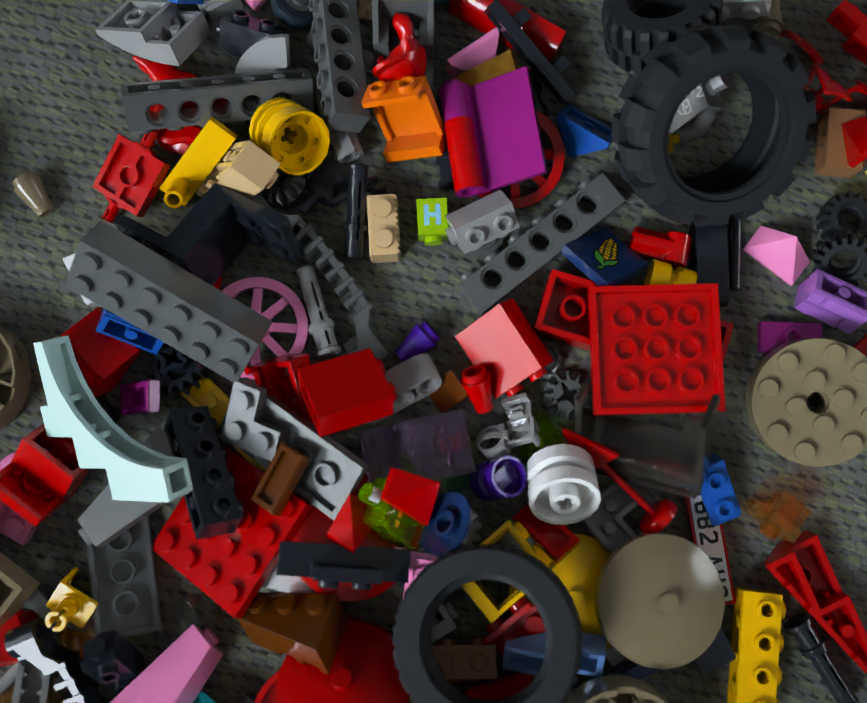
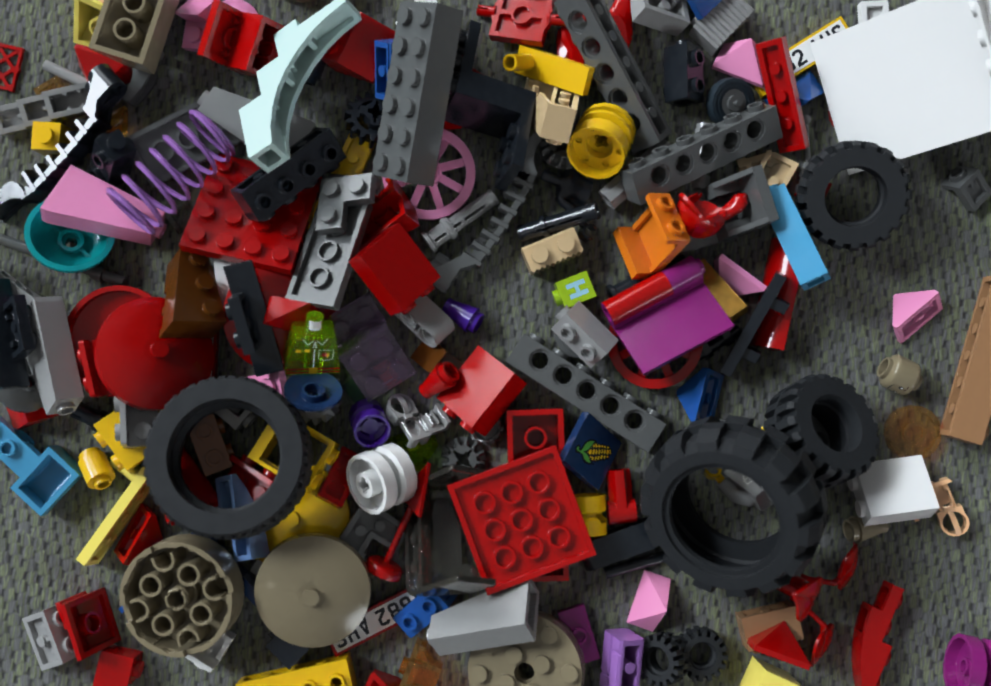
camera: 65 degrees right, 5 degrees up
(69, 605) = (144, 105): yellow bracket -> none
(140, 397) = (333, 97): magenta plate -> none
(170, 660) = (223, 145): none -> medium lavender piece
(266, 55) = (668, 92): light grey tile -> none
(280, 479) = (303, 241): reddish brown tile -> none
(411, 494) = (325, 354): red slope -> none
(752, 423) = (487, 621): none -> light grey slope

